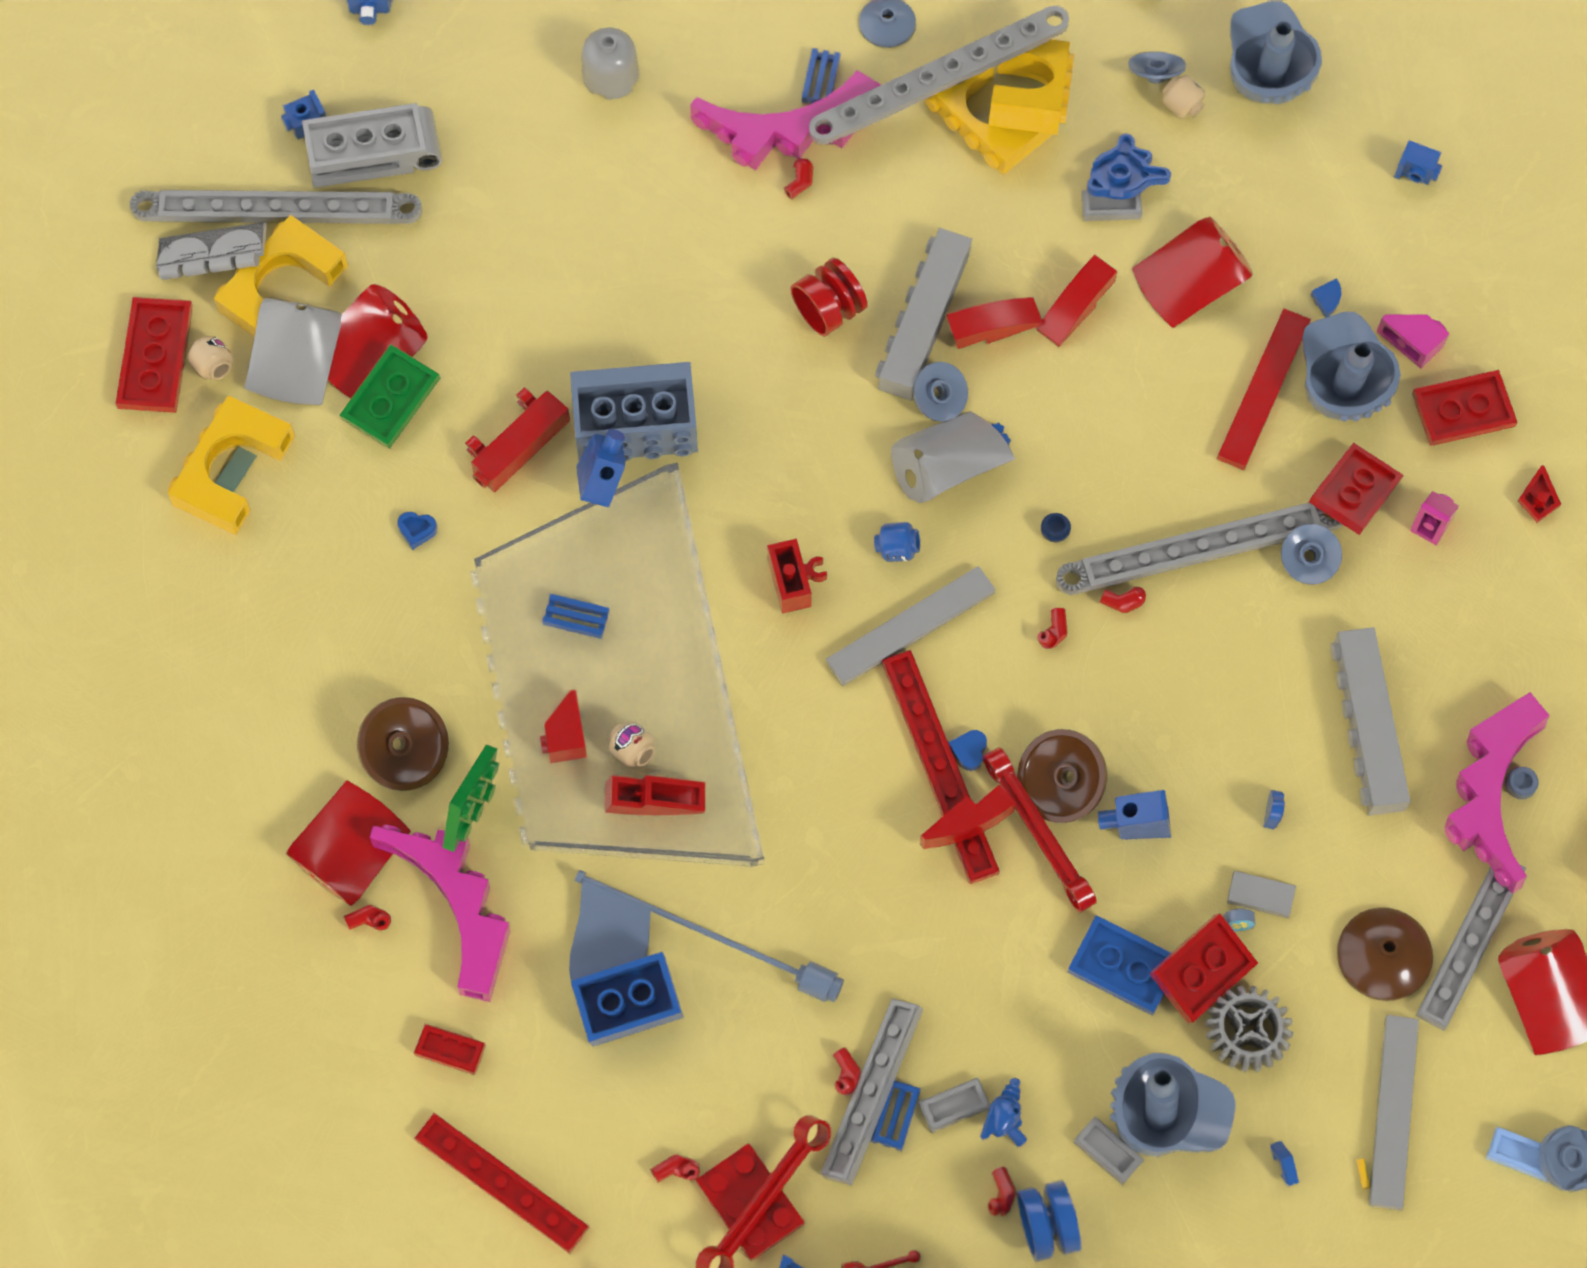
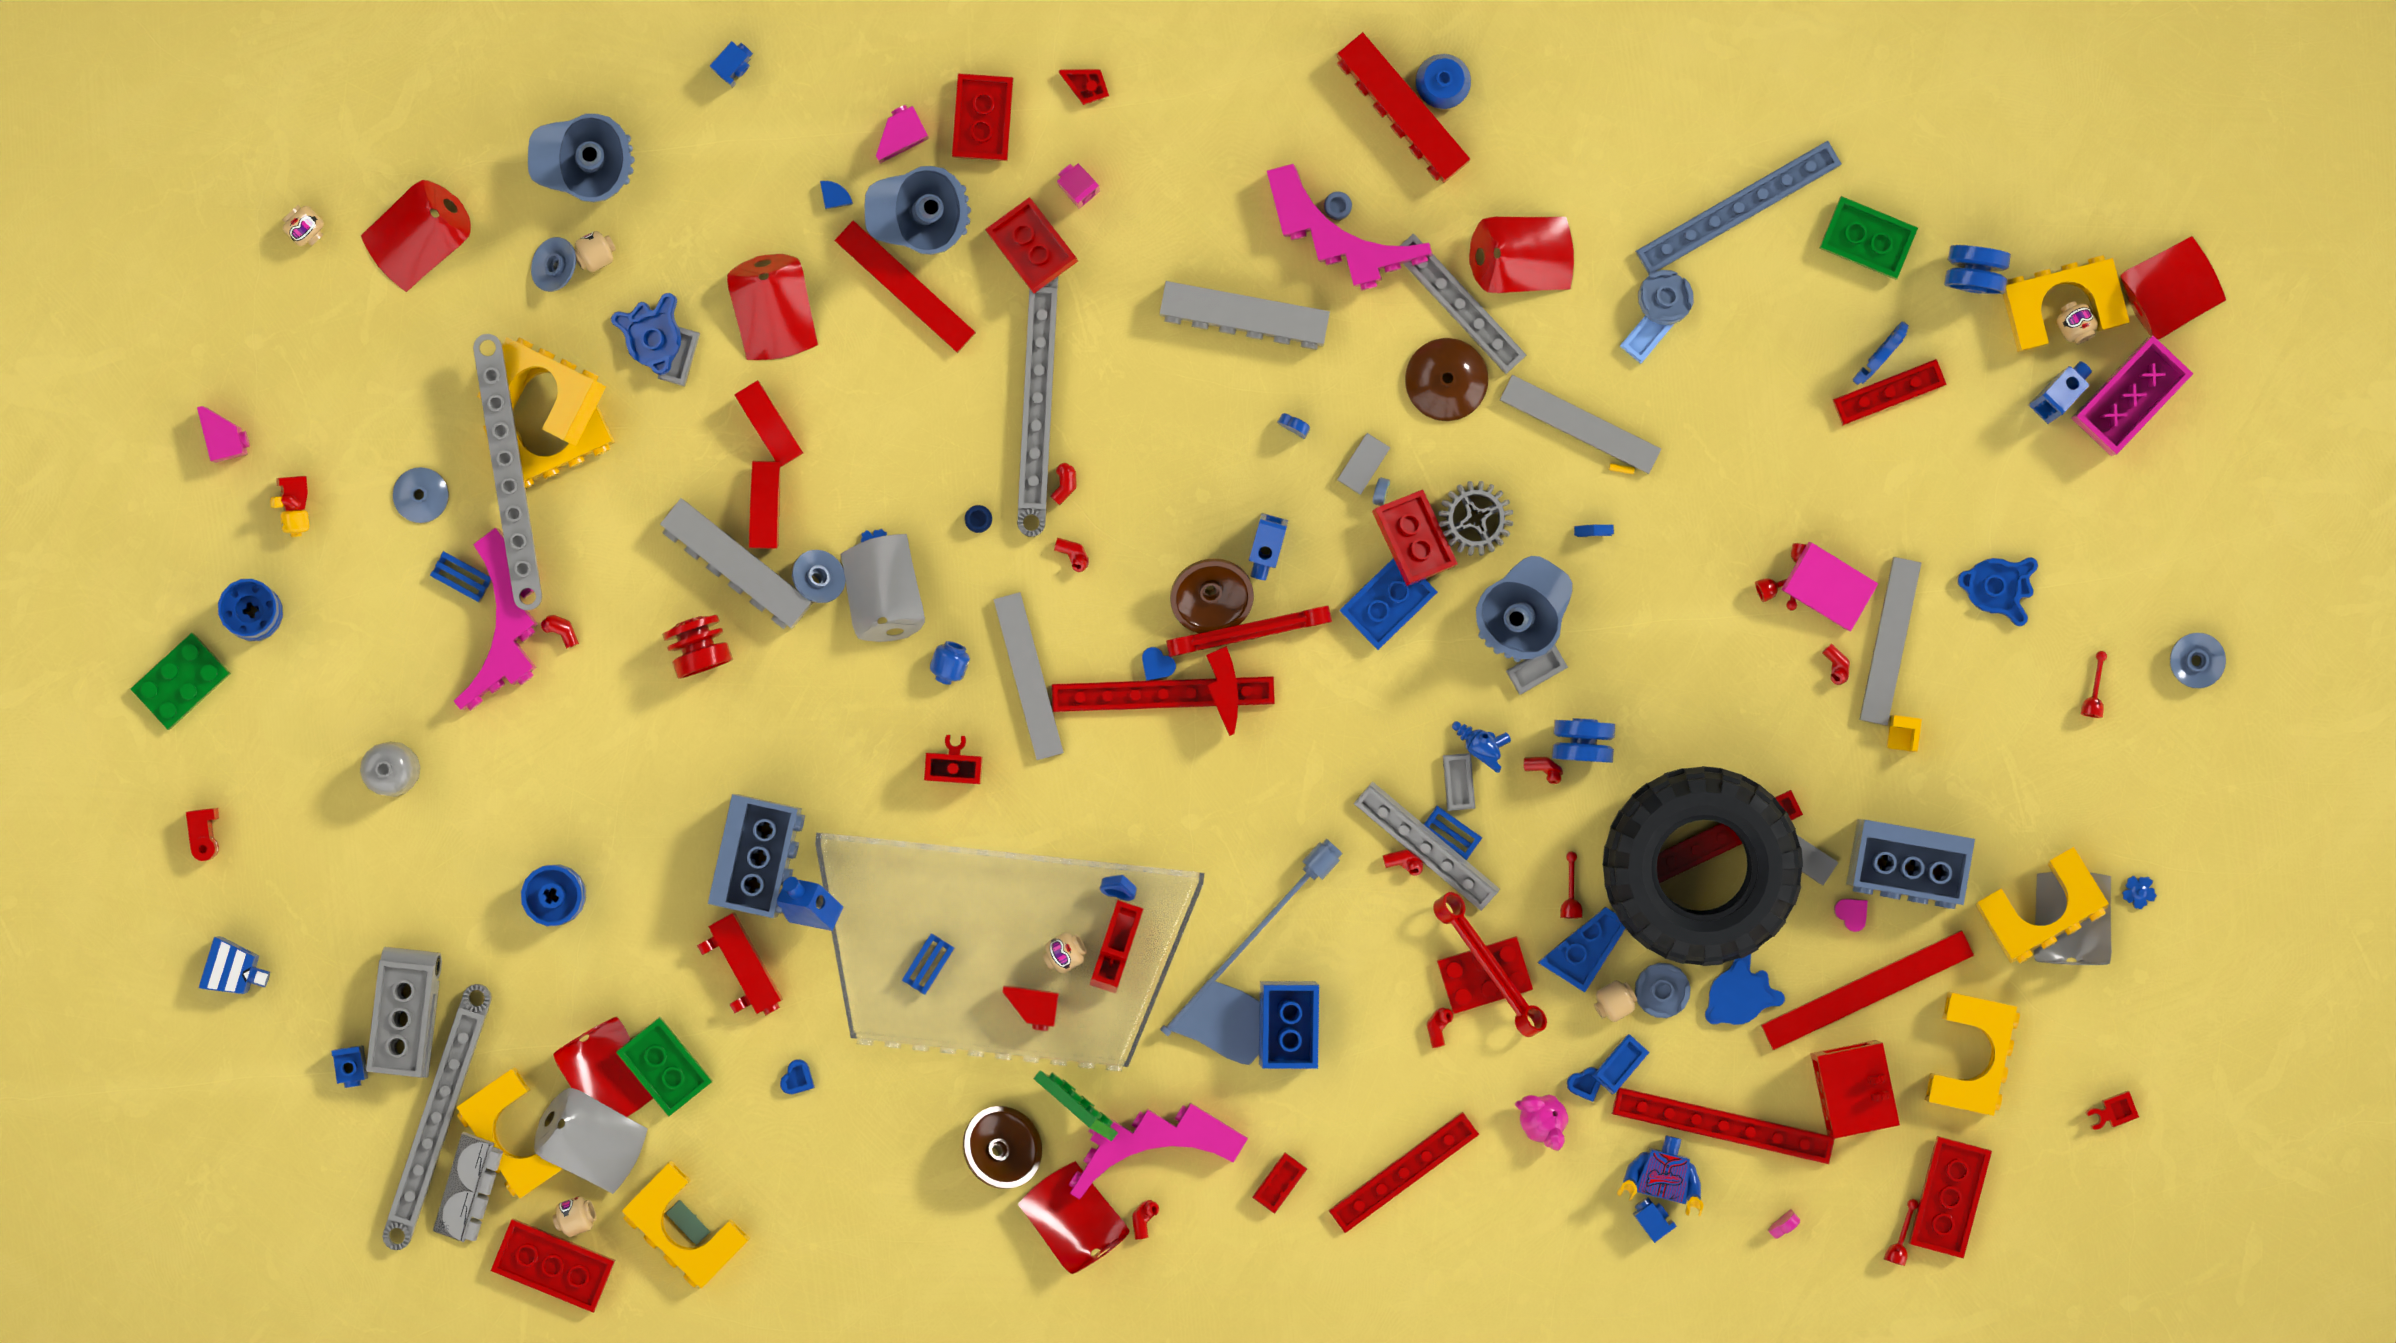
camera: 75 degrees left, 20 degrees up
(532, 243) = (537, 899): none -> blue wheel
(719, 778) = (1118, 887): none -> blue tile
(1325, 549) = (1091, 307): sand blue dish -> none

